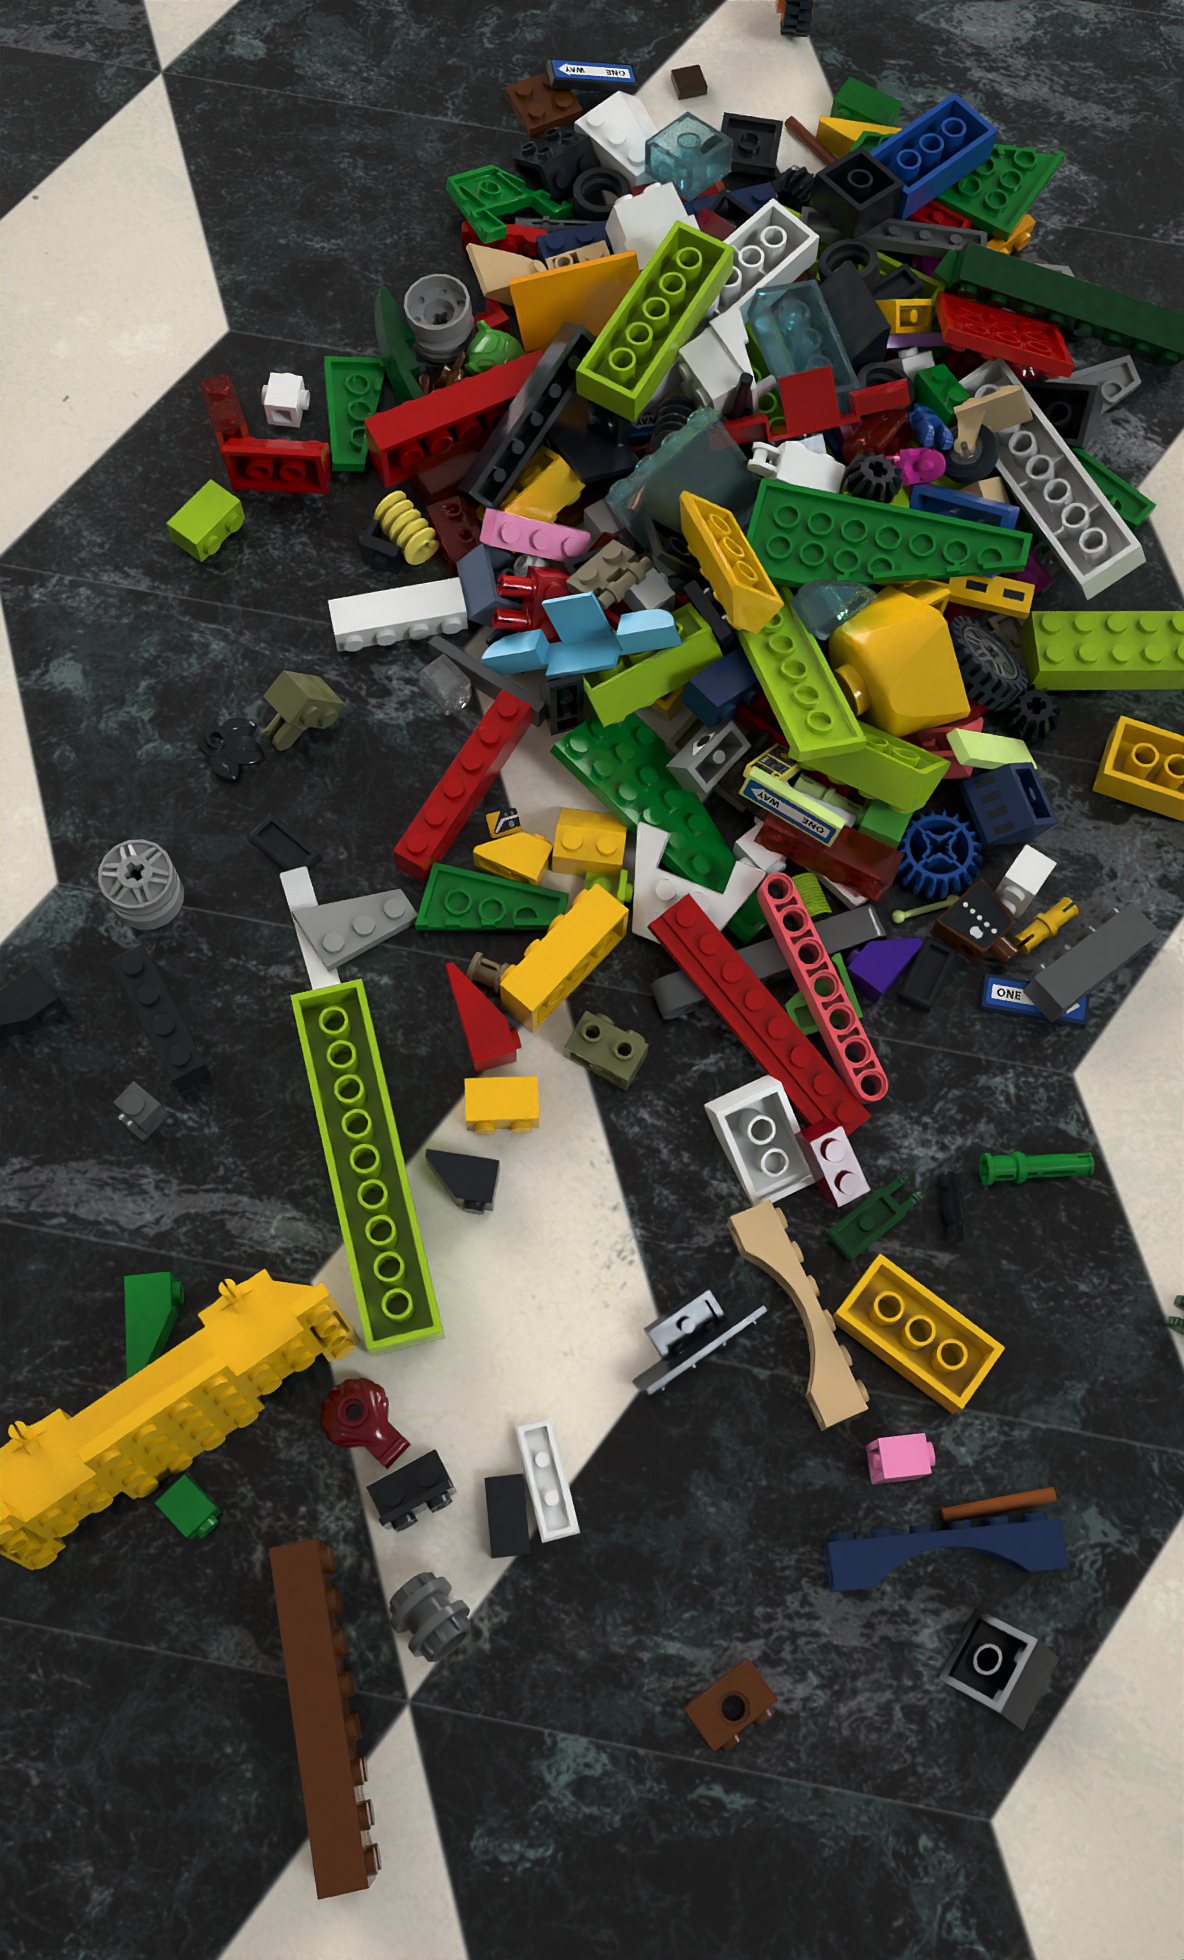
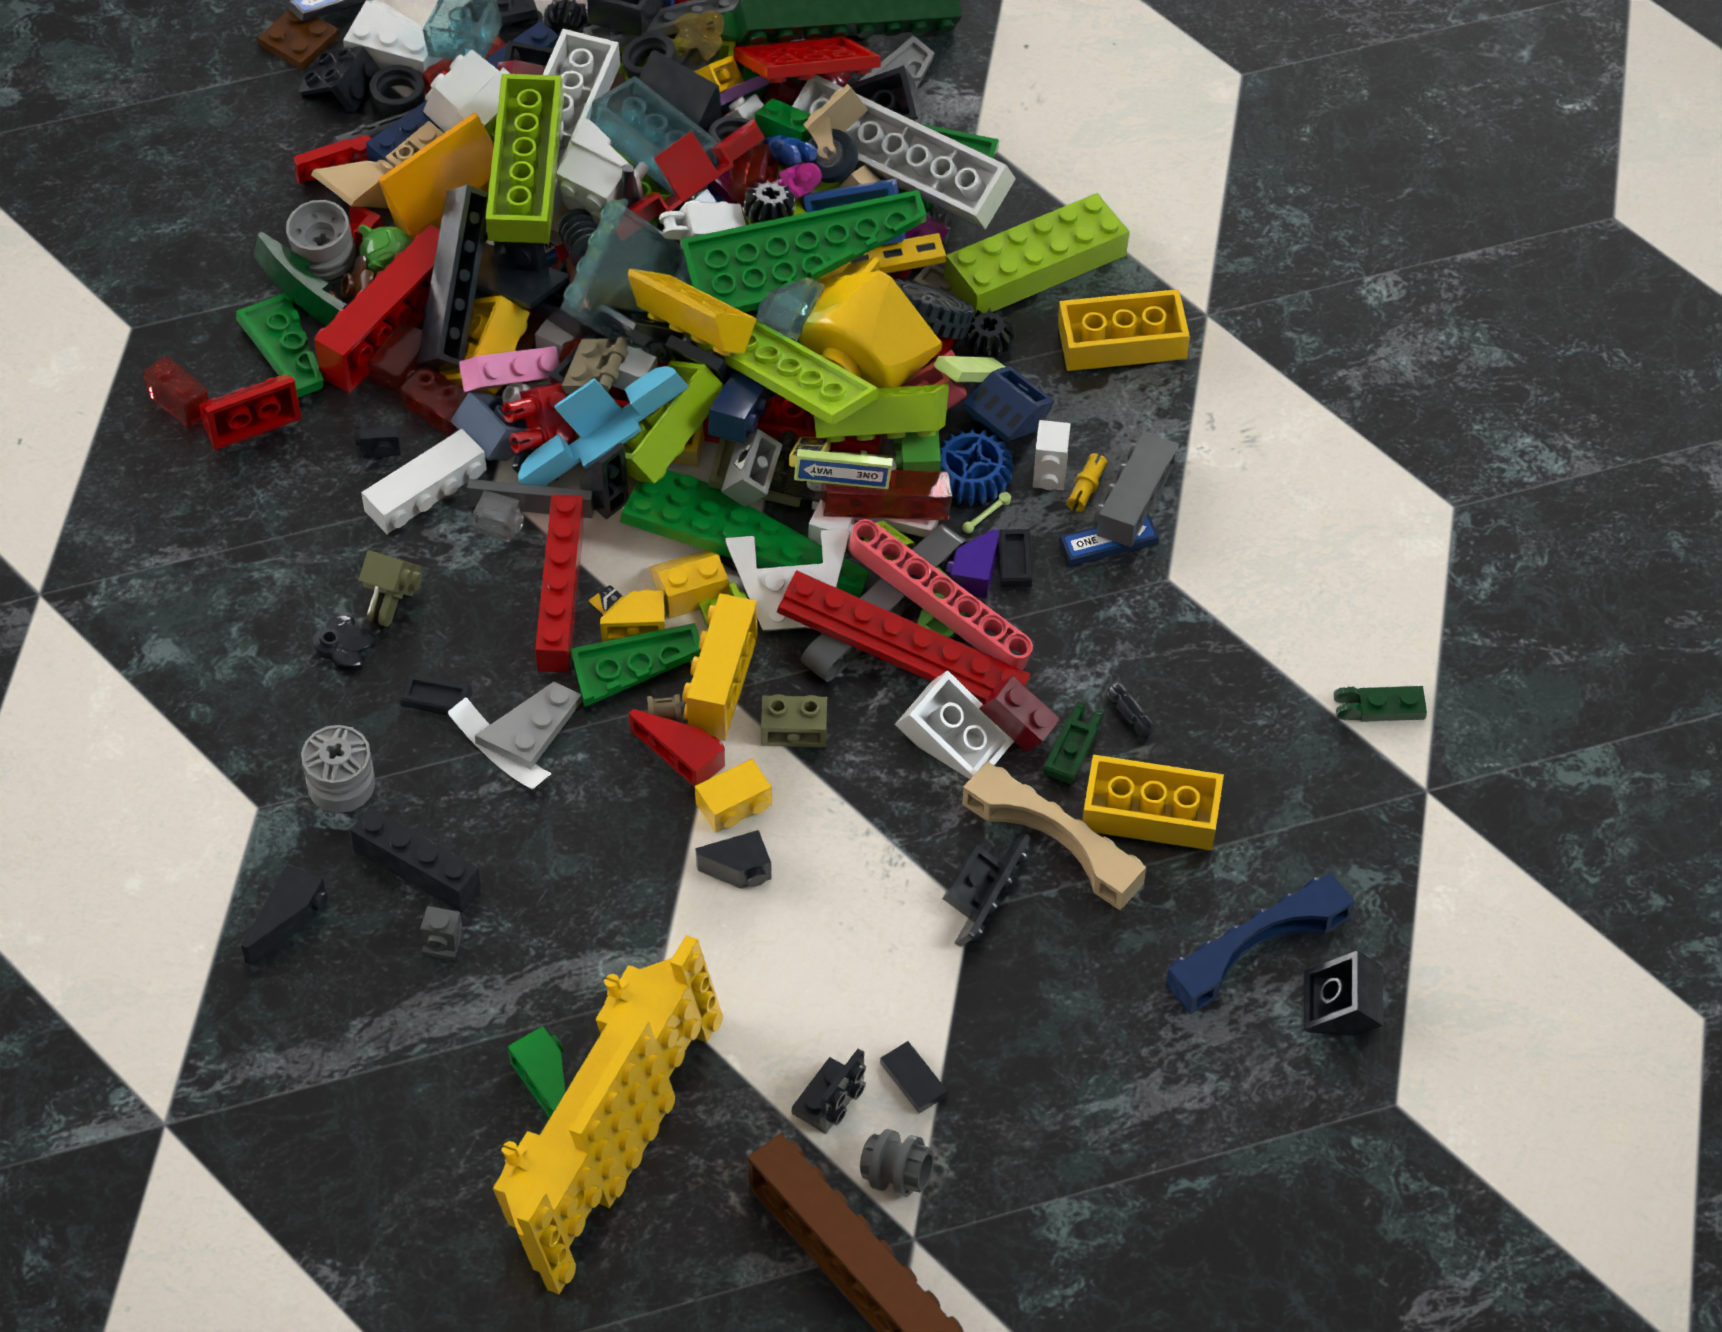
camera: 25 degrees left, 15 degrees down
(189, 1508) = (661, 1185): green brick -> none
(206, 521) = (215, 479): lime brick -> none
(285, 399) = (221, 359): white brick -> none
(358, 1417) = (756, 1063): dark red animal -> none
(367, 1169) = (653, 881): lime brick -> none
(406, 528) = (386, 413): light yellow piece -> none
(494, 192) = (303, 126): green wing -> none
(547, 1480) = (929, 1039): white tile -> none
(706, 1708) = (1160, 1097): reddish brown brick -> none
(900, 1458) = (1188, 888): bright pink brick -> none
(910, 263) = (696, 33): none -> clear yellow plate
(977, 925) = (1034, 503): torso -> none
(998, 1505) = (1292, 886): dark orange bar -> none
(1020, 1166) = (1165, 657): green pin -> none

